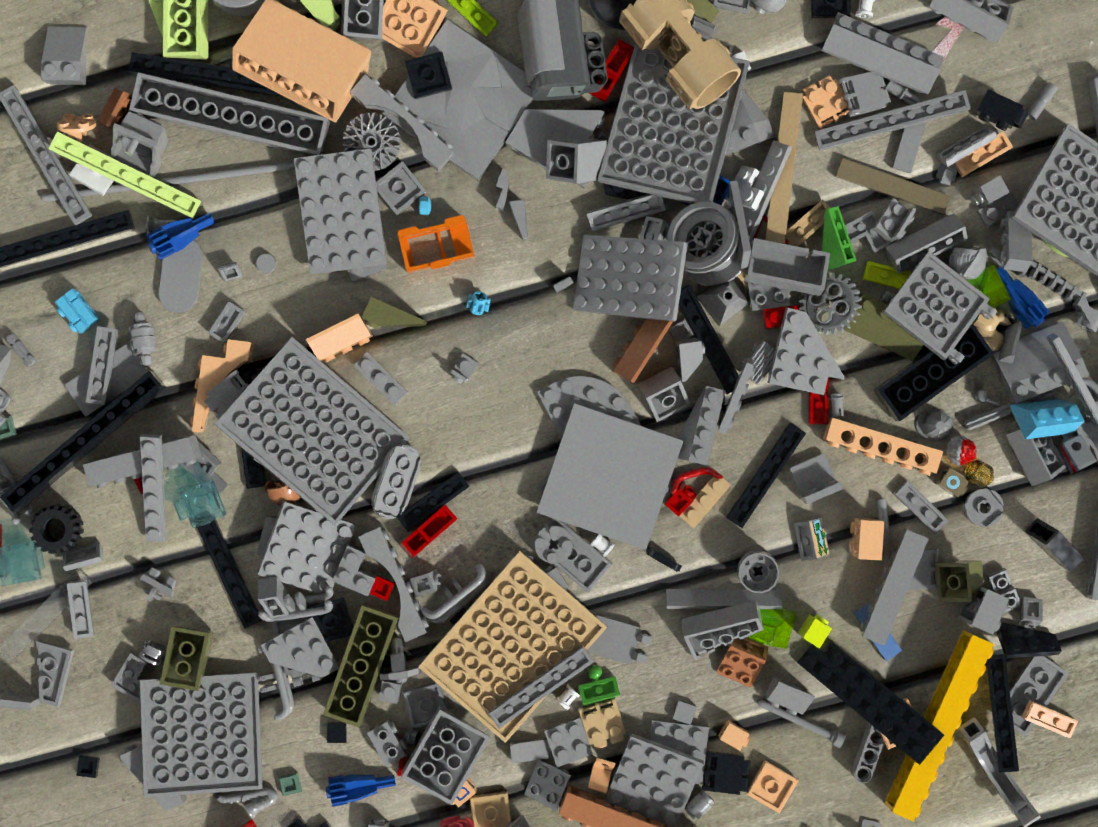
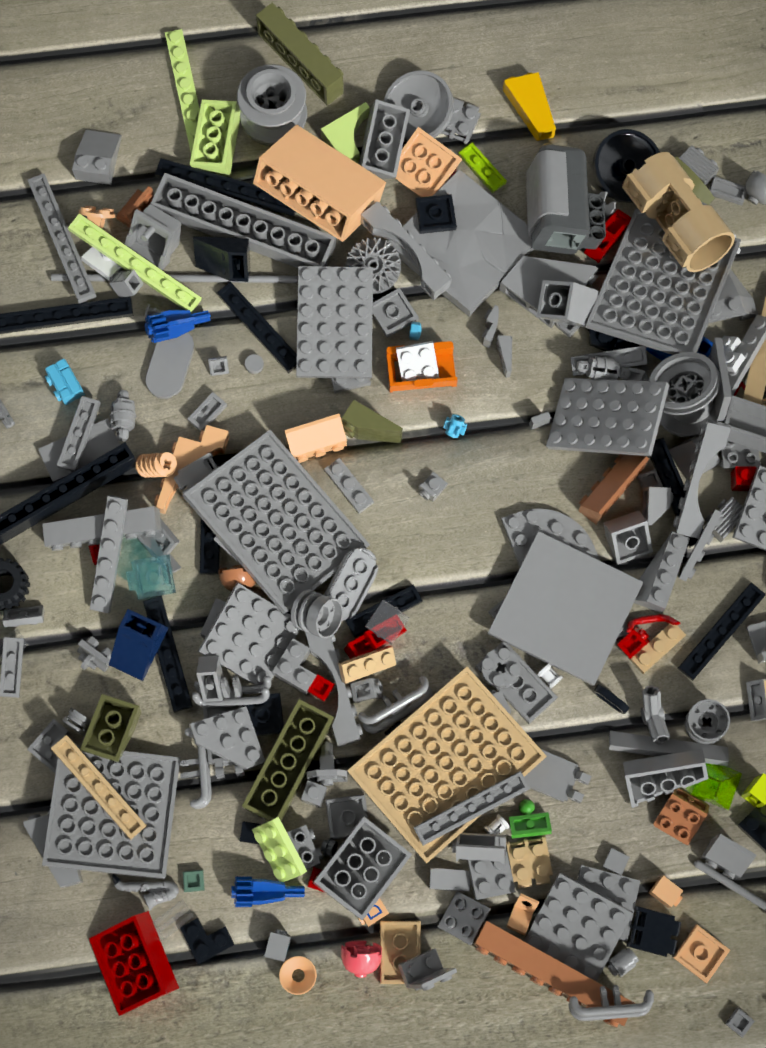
camera: 10 degrees right, 15 degrees down
(120, 197) = (126, 283): none -> light grey brick
(183, 717) = (98, 787): none -> tan plate
(184, 389) = (156, 465): none -> light nougat piece
(197, 569) = (136, 644): none -> dark blue slope
(216, 155) = (223, 257): none -> black slope
(263, 221) = (258, 326): none -> black tile
(364, 750) = (279, 850): none -> yellowish green plate
(366, 522) = (317, 614): none -> light grey wheel
(423, 559) = (367, 664): none -> tan plate
(431, 242) = (417, 361): none -> white plate
(437, 514) = (387, 622): none -> clear piece
(554, 719) = (480, 847): none -> light grey window
(608, 42) = (609, 209): none -> light grey piece
(620, 224) = (603, 363): none -> light grey piece
(707, 570) = (653, 714): none -> light grey piece
(737, 297) = (712, 441): none -> light grey arch

